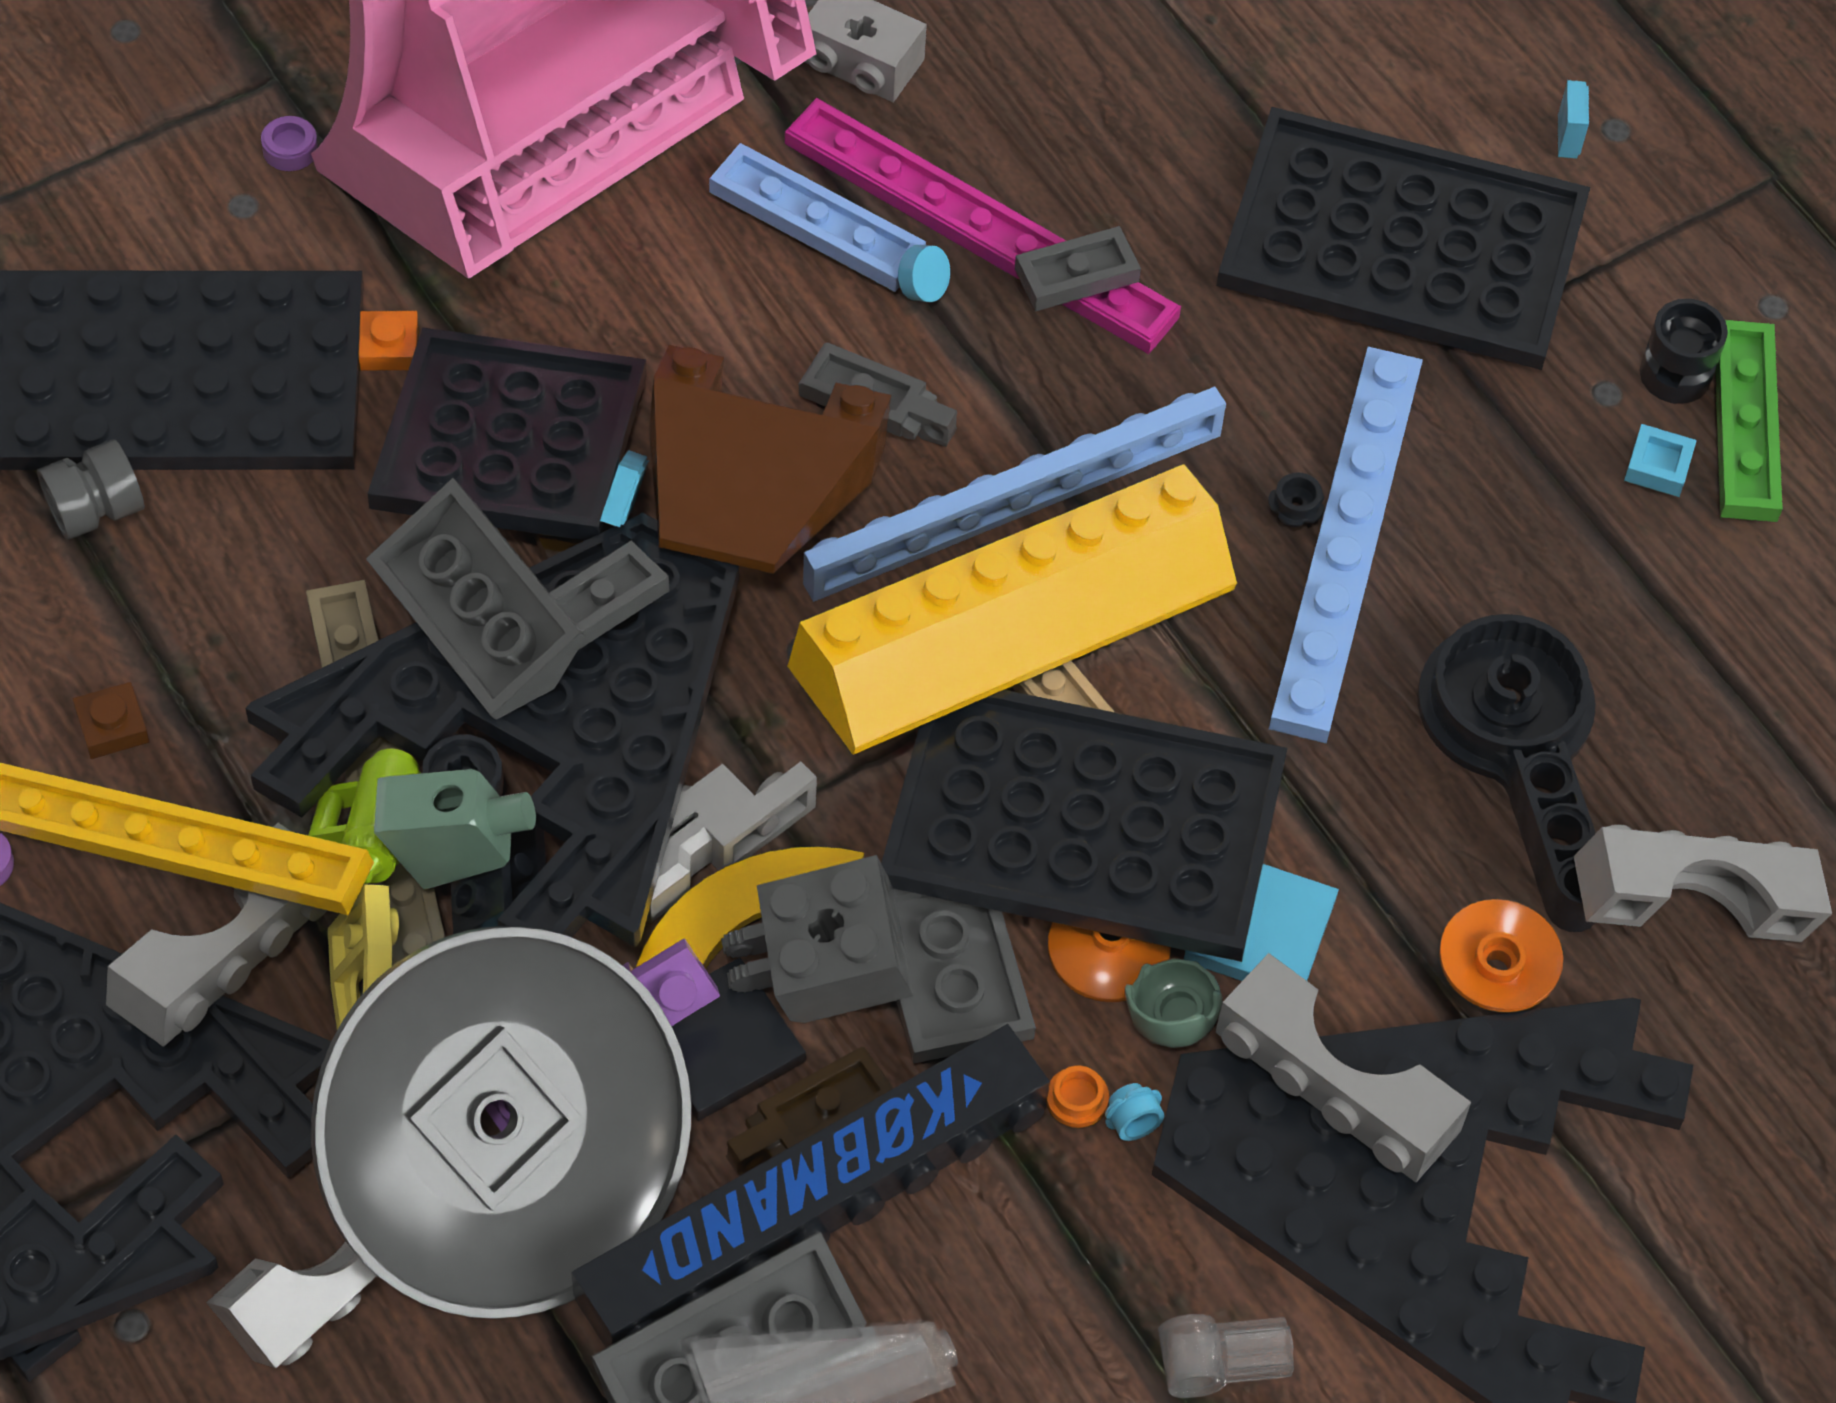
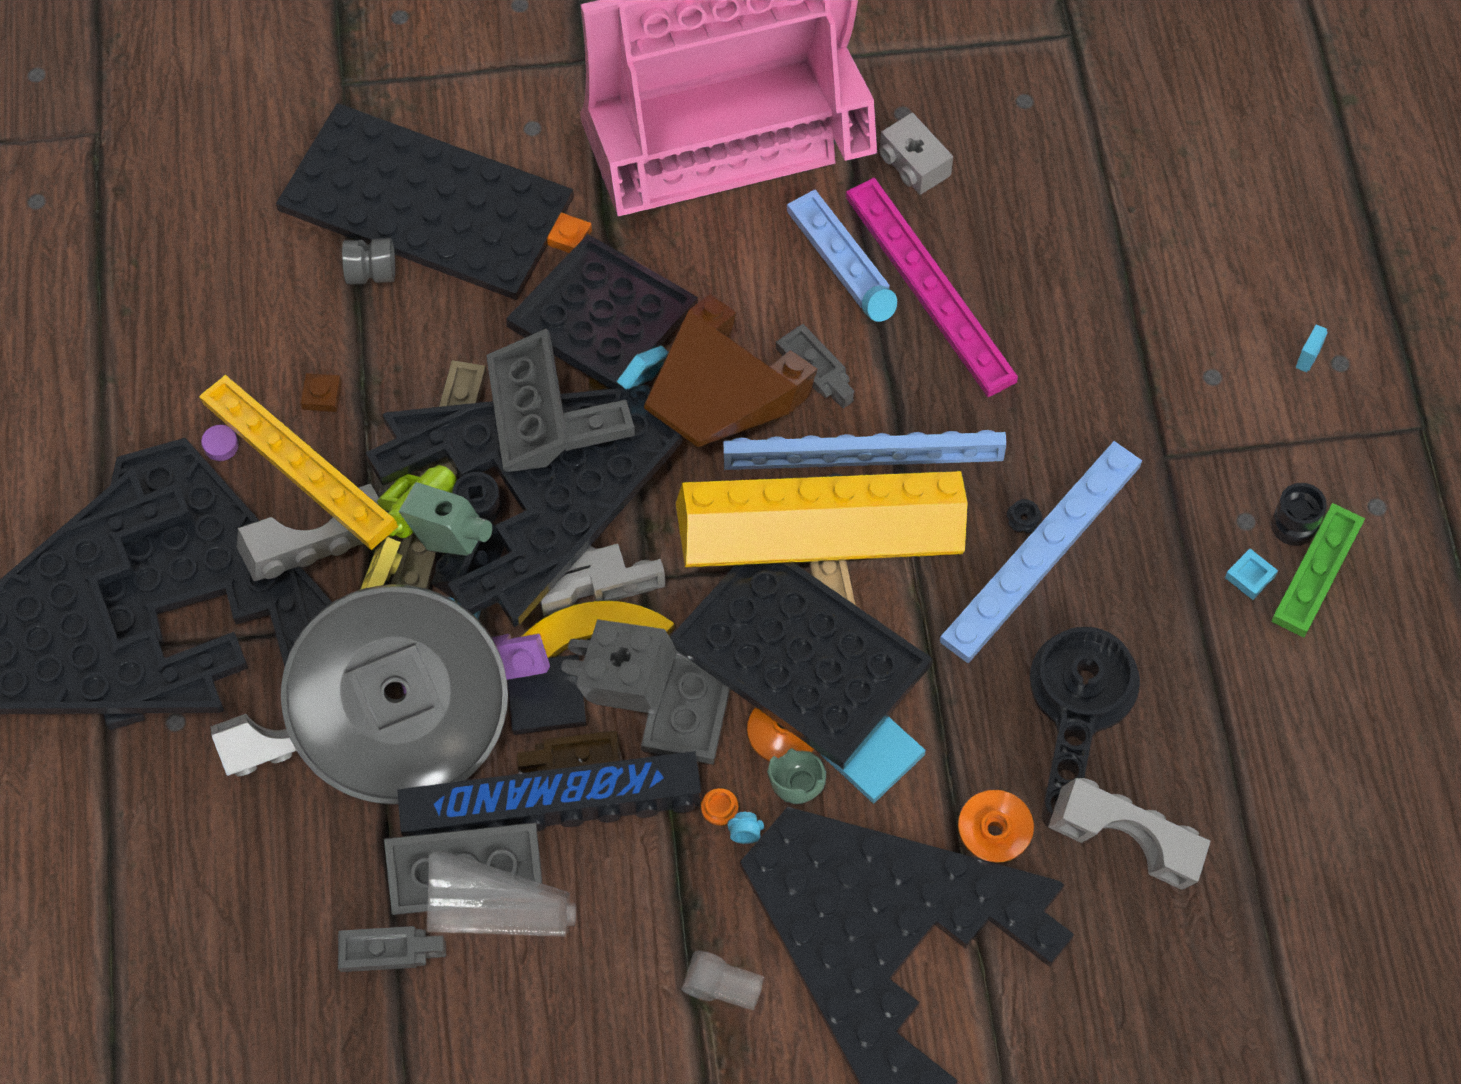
camera: 30 degrees right, 5 degrees up
(289, 143) = (571, 100): medium lavender tile -> none
(1077, 268) = (965, 333): dark grey plate -> none
(1399, 1115) = (883, 893): light grey arch -> none
(1404, 237) = (1172, 383): black plate -> none

